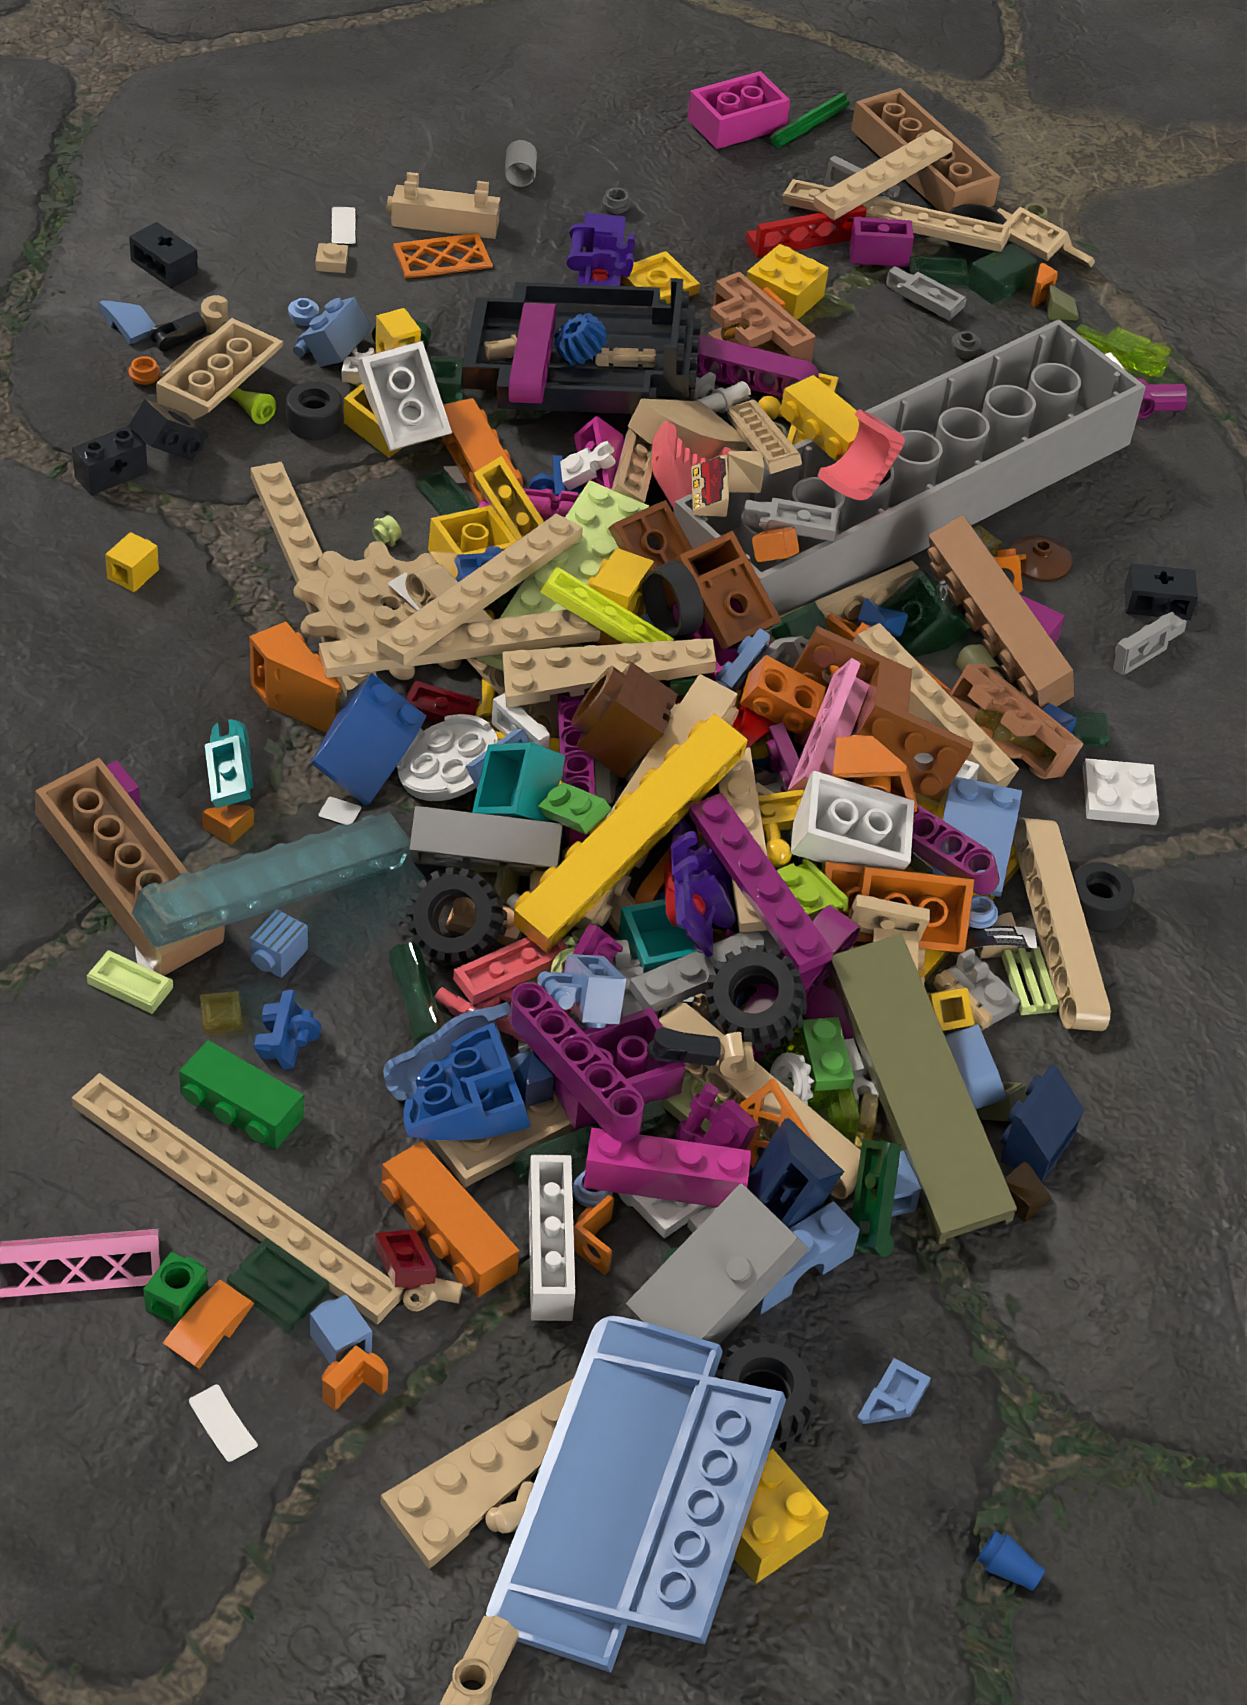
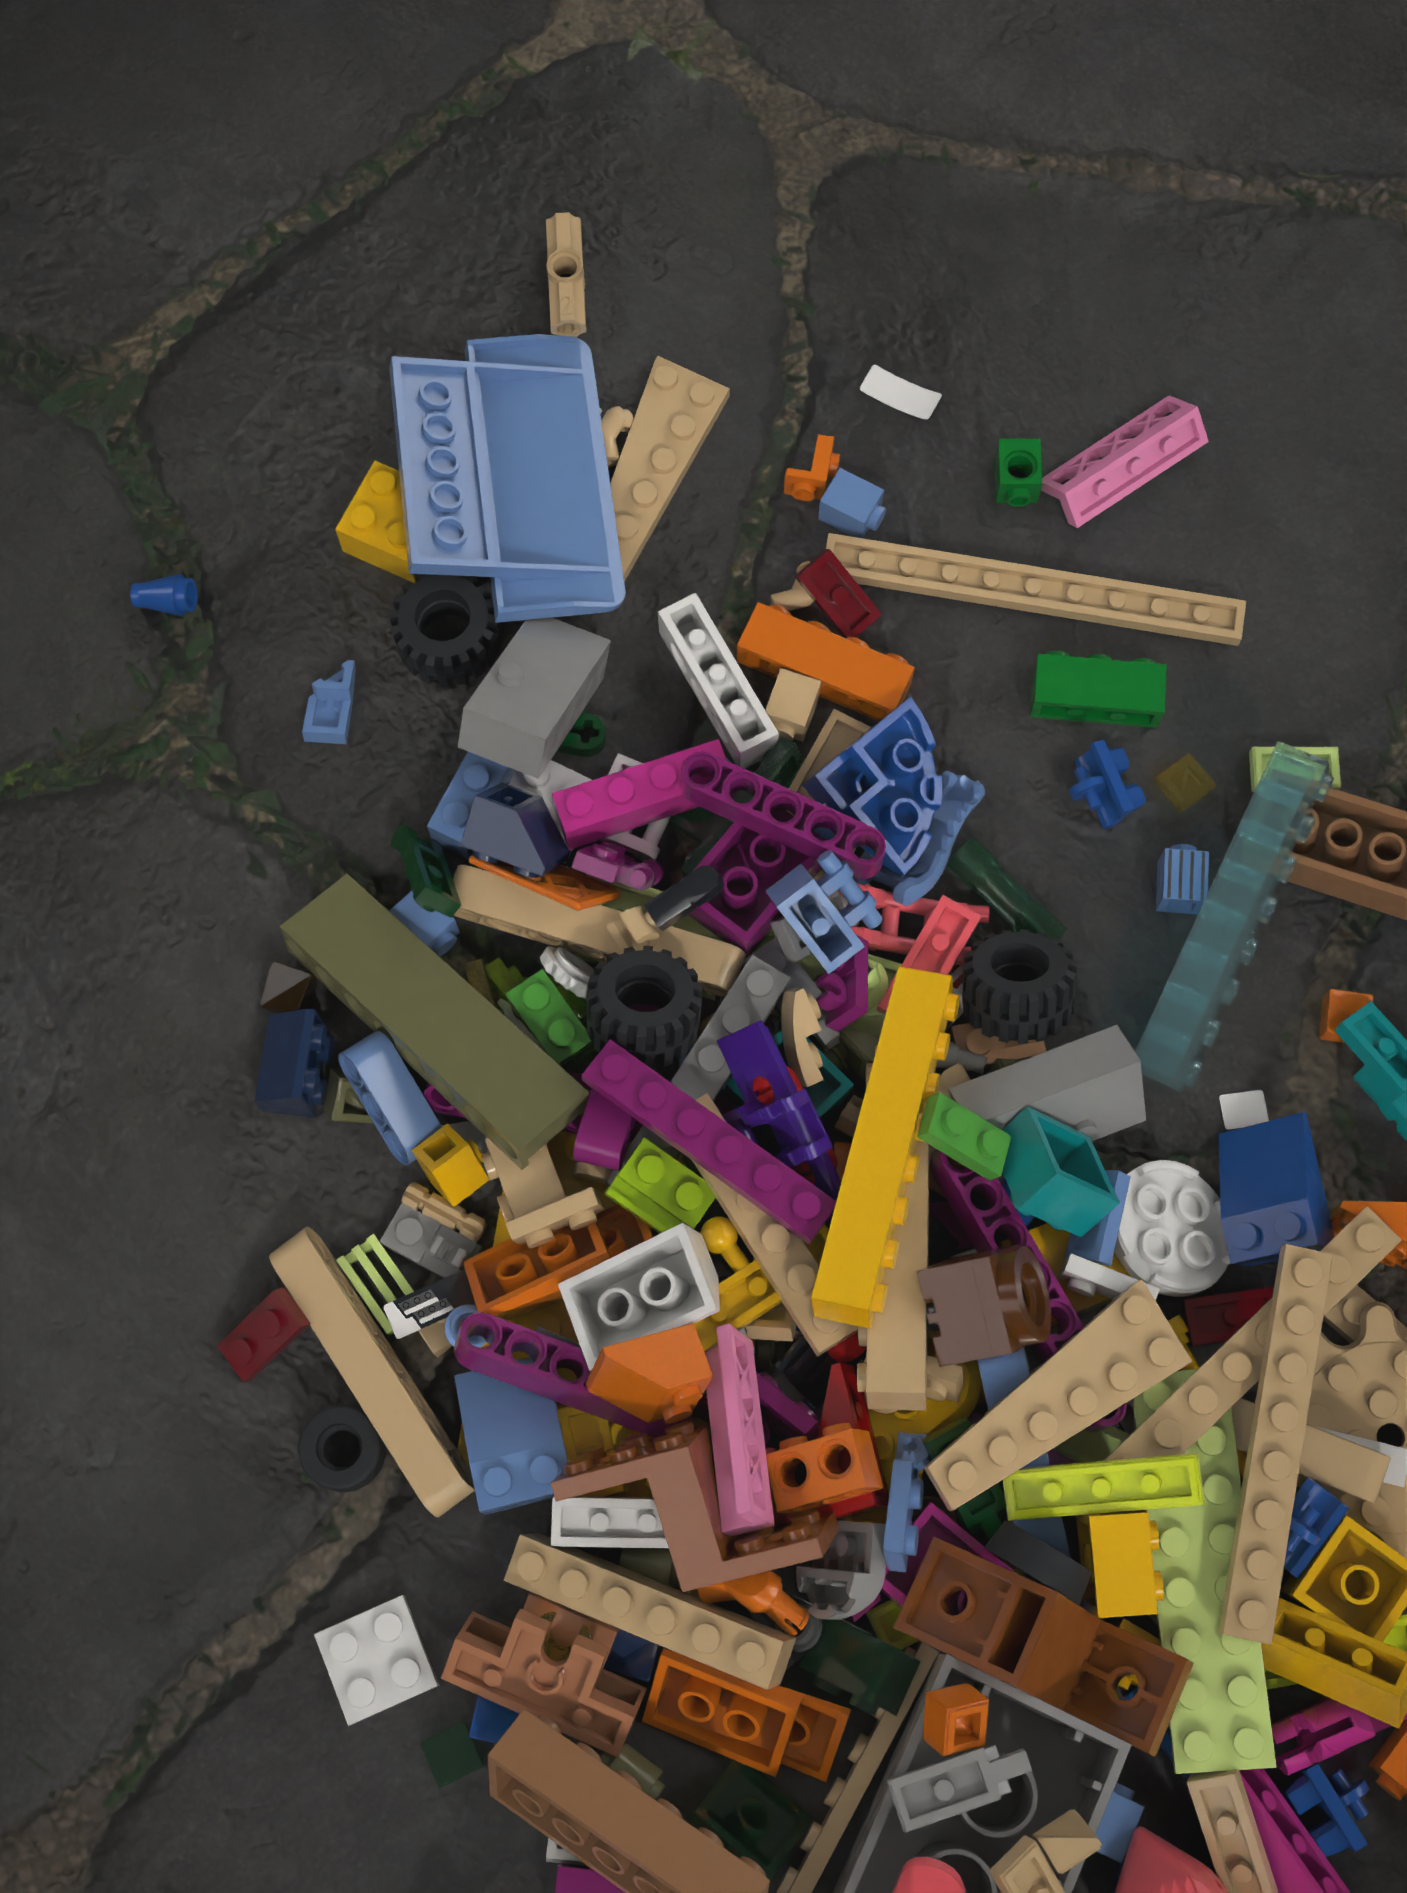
camera: 160 degrees right, 25 degrees up
(207, 1322) = (970, 461): orange slope -> none
(278, 1284) = (936, 522): clear green plate -> none
(501, 1195) = (793, 704): none -> tan brick
(582, 466) = (1310, 1829): white plate -> none
(586, 1226) = (691, 705): orange bracket -> none
(645, 938) = (799, 1021): none -> tan slope
(710, 487) = (1097, 1788): slope -> none
(891, 620) = (788, 1788): blue slope -> none
(1132, 976) = (263, 1334): none -> dark red plate

